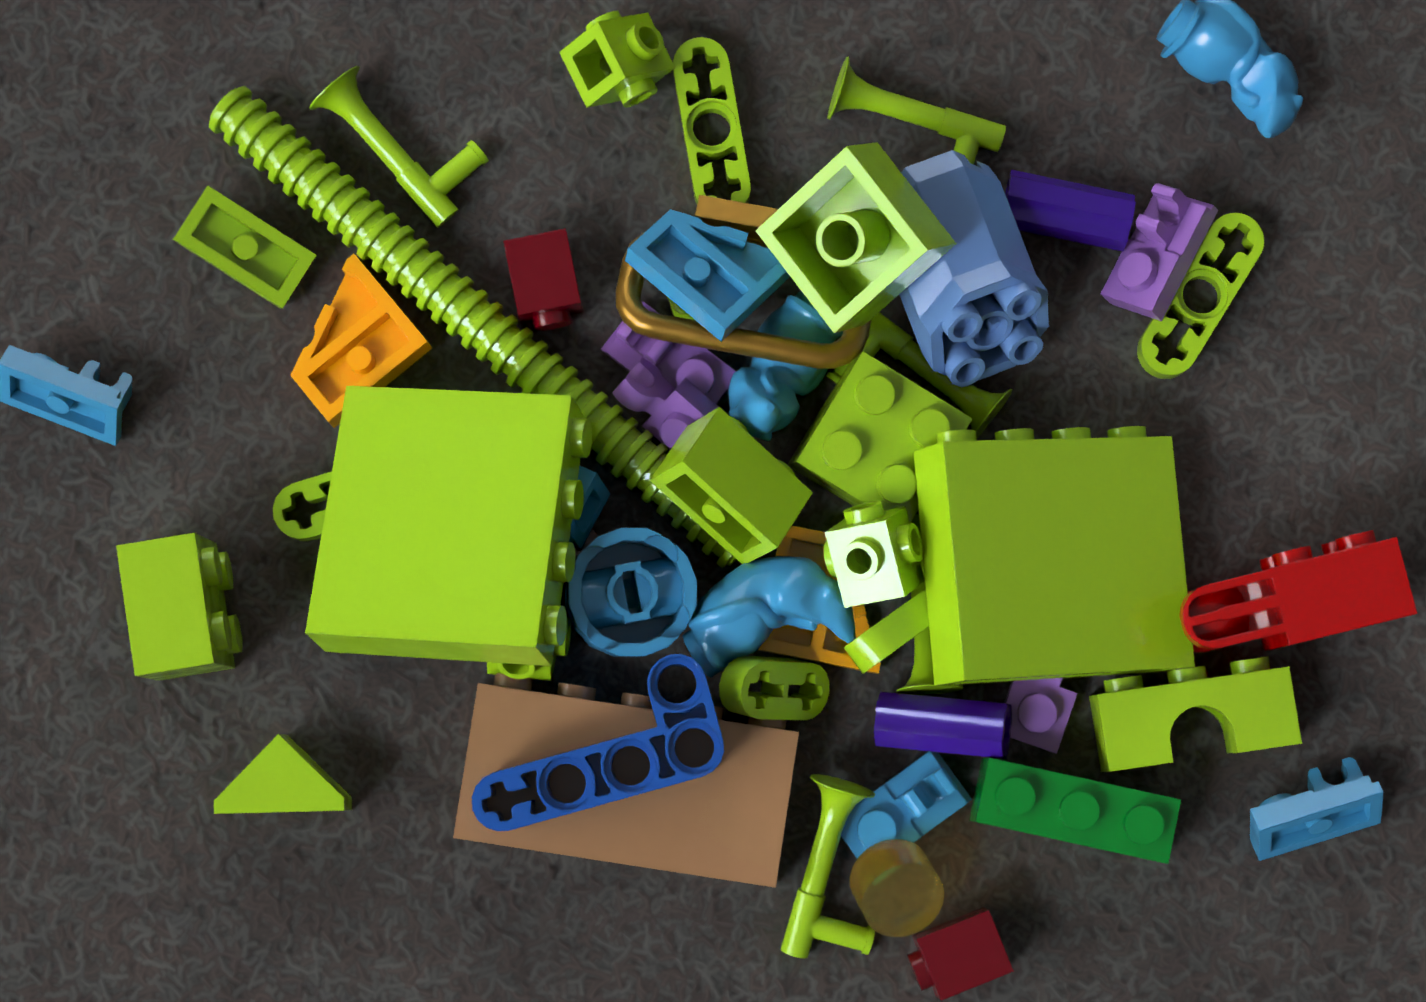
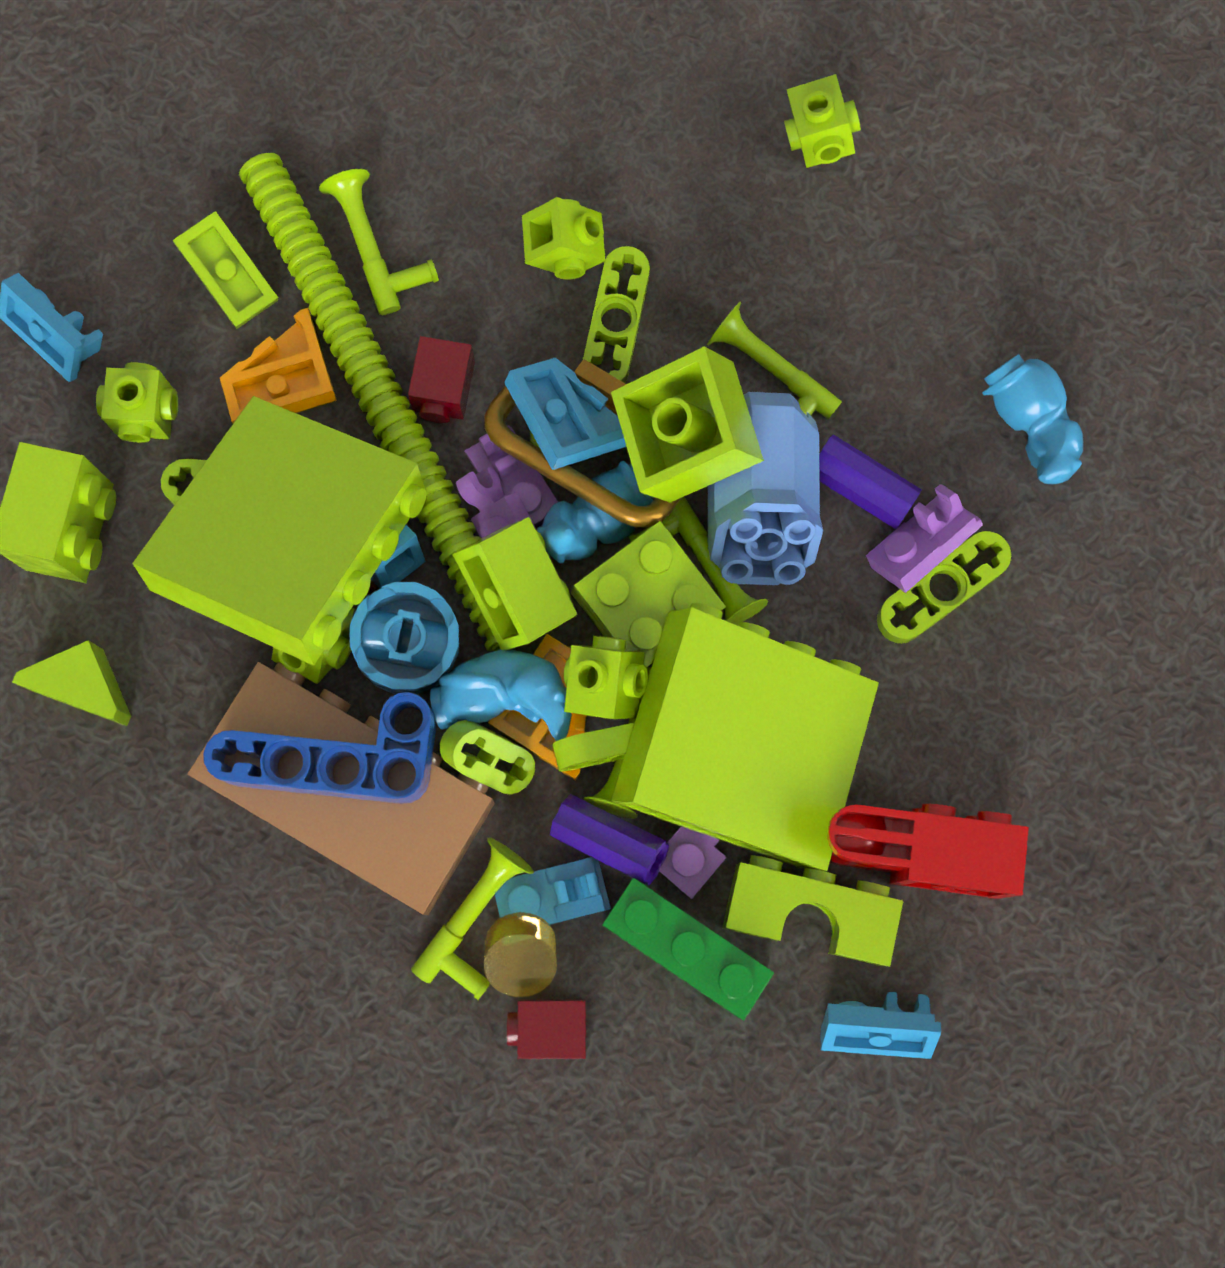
camera: 20 degrees right, 5 degrees down
(229, 454) = (148, 413): none -> lime brick

